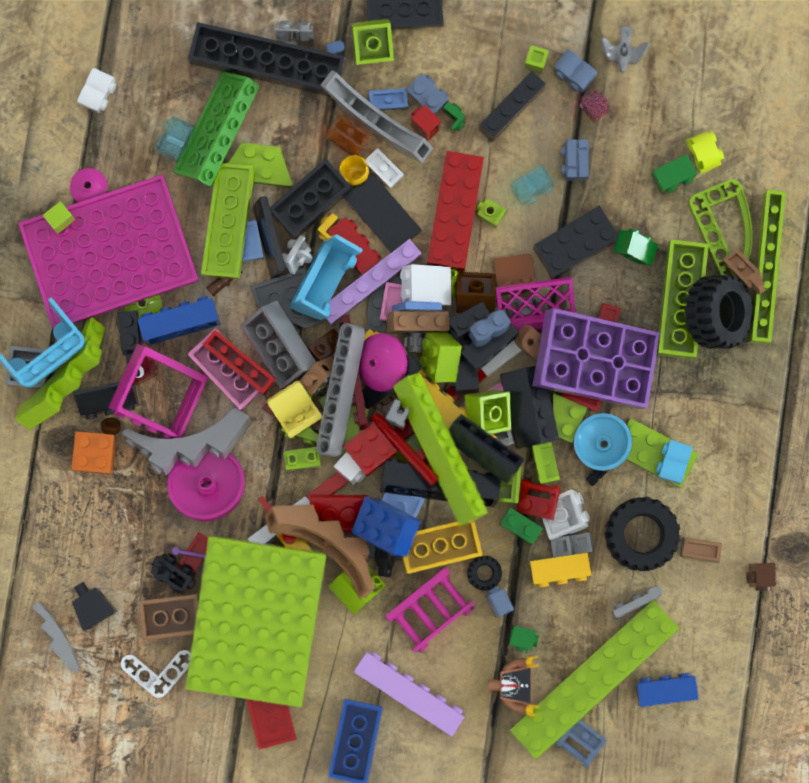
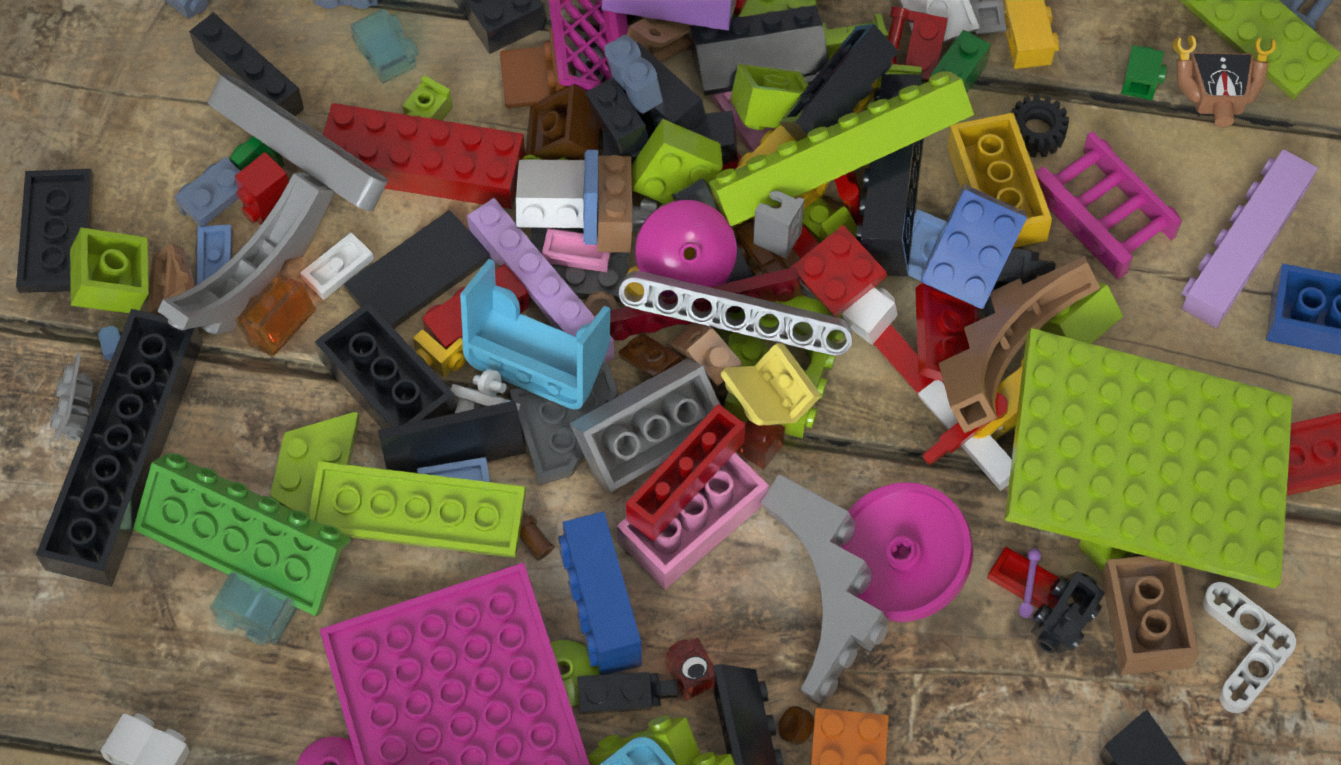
camera: 85 degrees left, 20 degrees down
(187, 405) = (752, 588): dark pink window -> none
(302, 458) = (853, 396): lime hips -> none
(354, 169) = (335, 304): yellow hair -> none
(359, 317) = (599, 299): none -> medium nougat tile
(370, 76) = (168, 276): none -> medium nougat wing
(405, 449) = (841, 209): red axle -> none
(452, 138) = (297, 142): none -> light grey beam
(499, 601) = (1089, 95): sand blue brick -> none
(536, 59) = (170, 29): lime panel -> none

